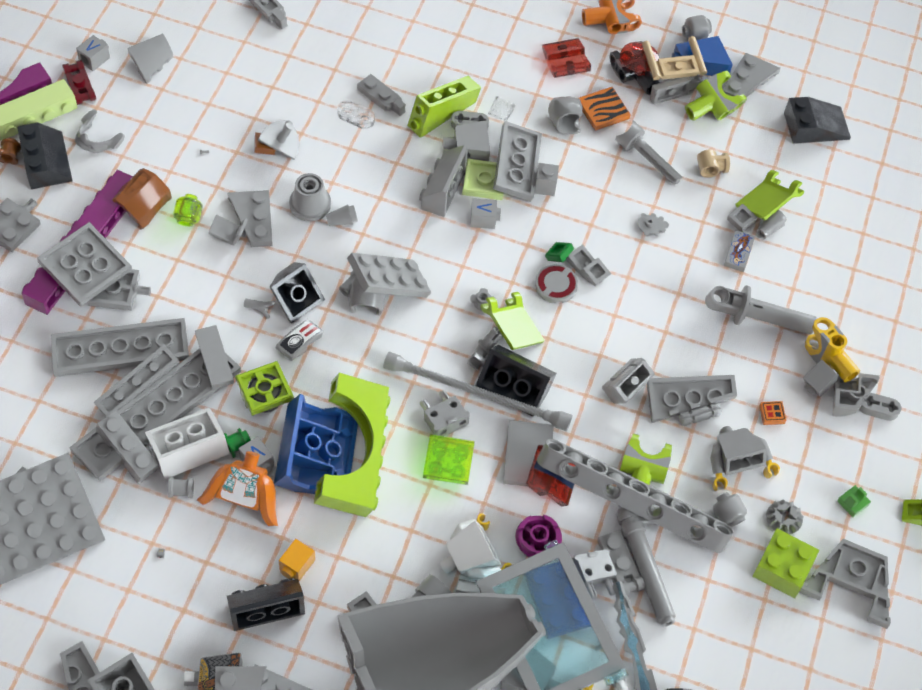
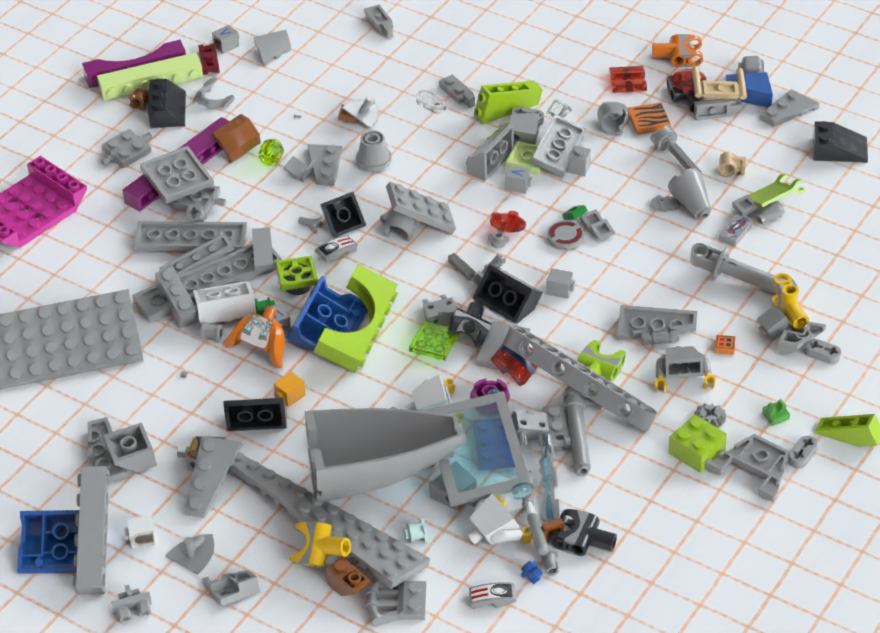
camera: 20 degrees right, 15 degrees down
(117, 320) = (193, 209): none -> light grey bush
(343, 216) = (397, 169): light grey cone -> none
(451, 344) = (461, 266): none -> light grey axle
(486, 431) = (470, 323): none -> black connector
(488, 275) = (507, 222): none -> clear red dish
(513, 322) = (518, 255): flag -> none
(557, 418) = (535, 324): light grey hose -> none
(571, 355) = (560, 283): none -> light grey brick
(628, 380) = (602, 304): light grey brick -> none
(684, 212) = (691, 192): none -> light grey cone
(714, 99) = (748, 118): lime connector -> none
(730, 509) = (662, 401): light grey head -> none
(903, 553) = (799, 449): none -> light grey beam

